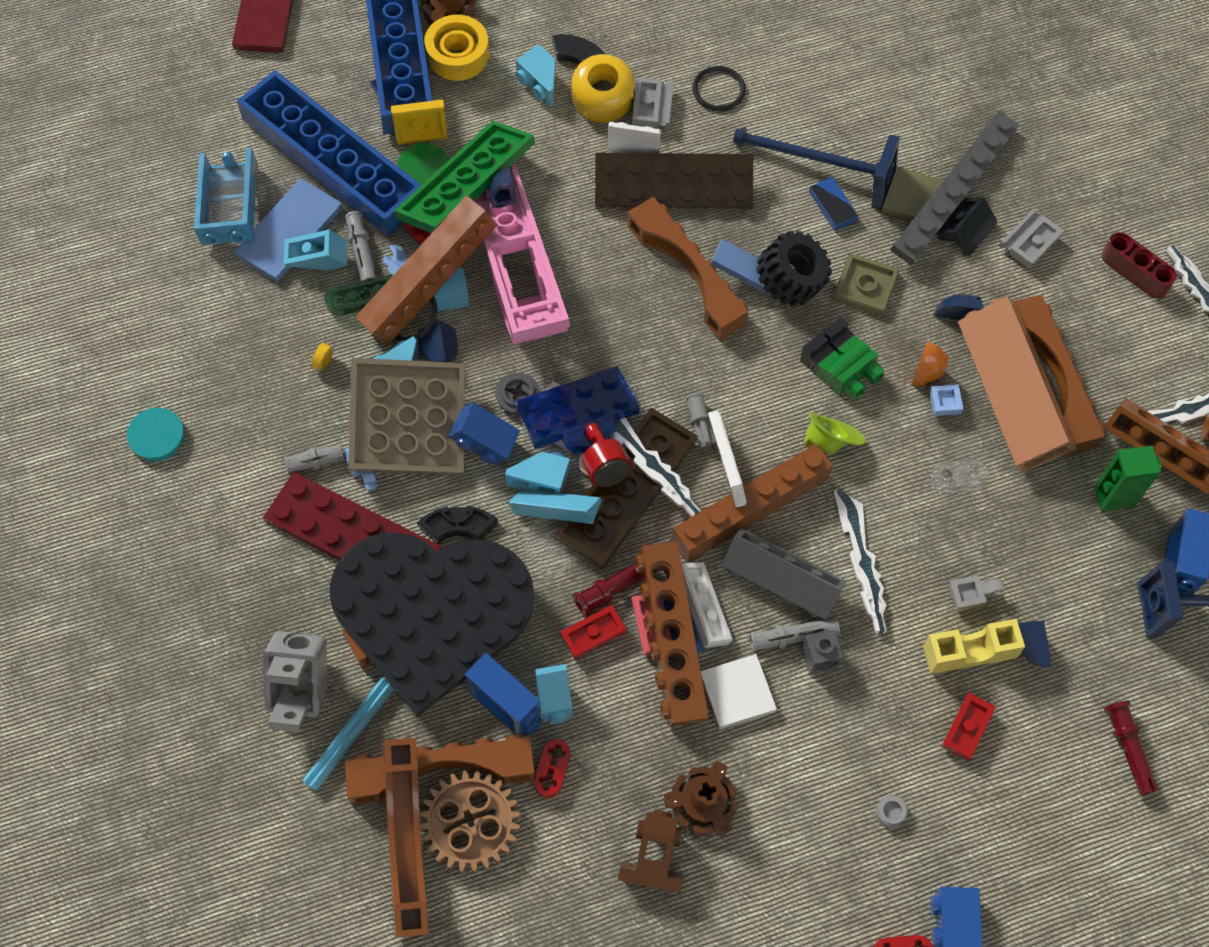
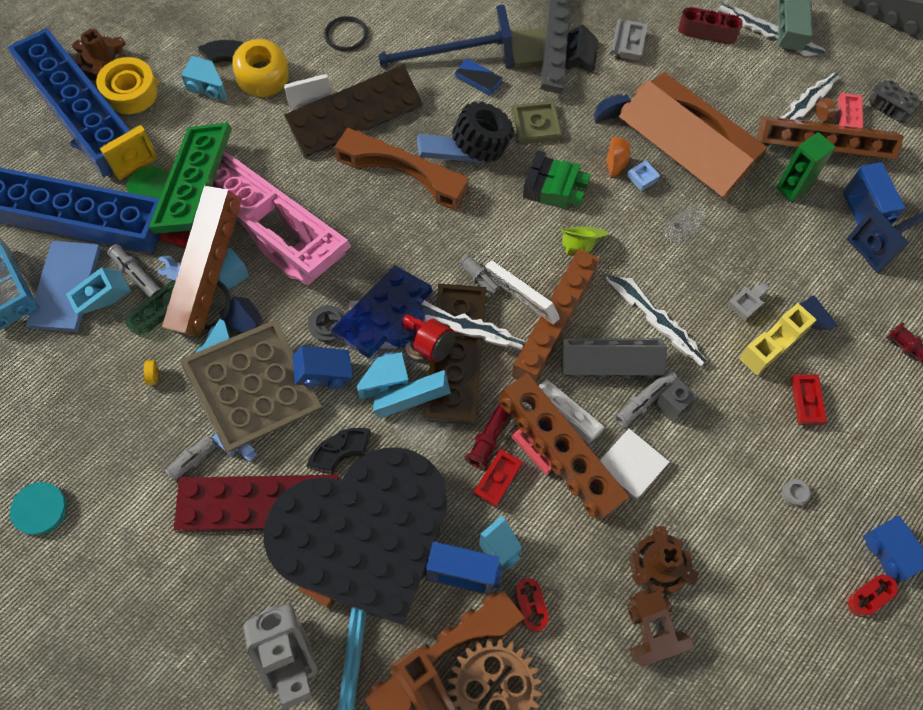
camera: 30 degrees left, 0 degrees up
(502, 189) = (228, 171): dark blue brick -> none
(652, 103) = (303, 62): light grey plate -> none

